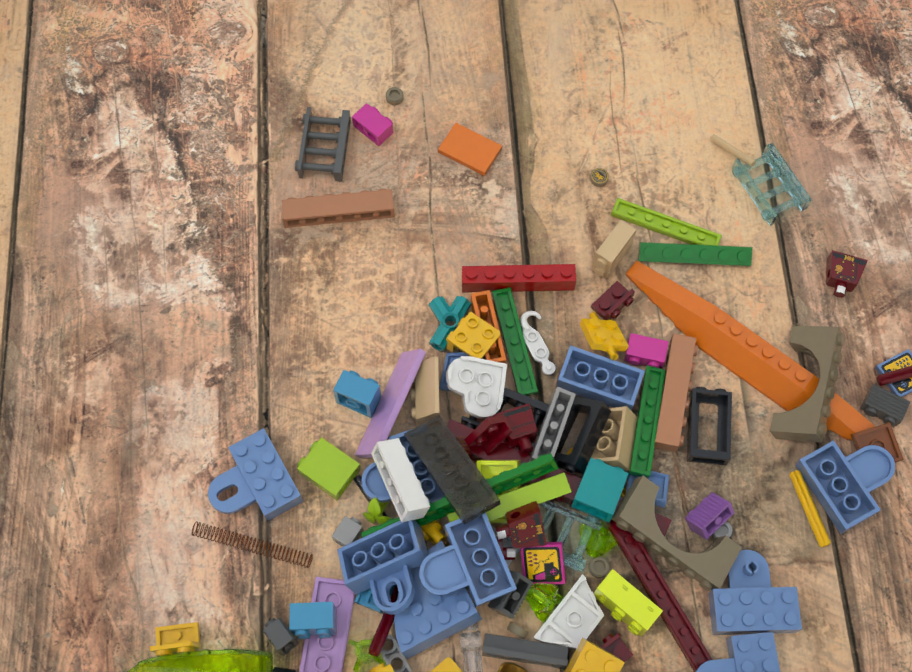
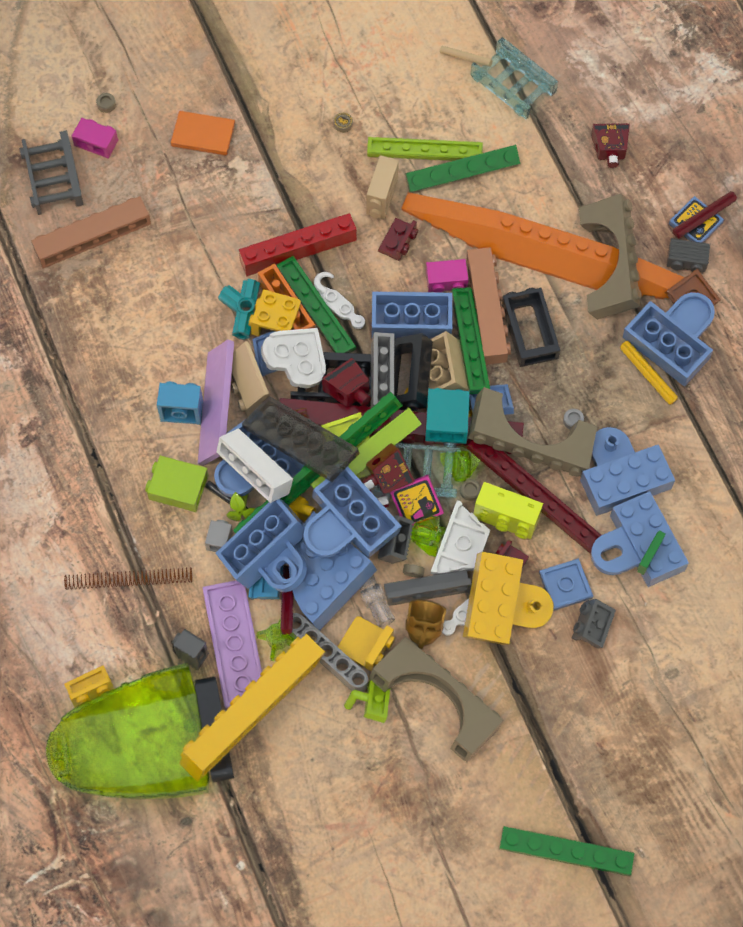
camera: 20 degrees left, 0 degrees up
(258, 477) = (112, 513): medium blue brick -> none
(313, 619) = (217, 621): dark azure brick -> none
(490, 433) = (325, 395): dark red bracket -> none
(603, 335) = (401, 272): yellow plate -> none
(709, 515) = (557, 408): medium lavender brick -> none

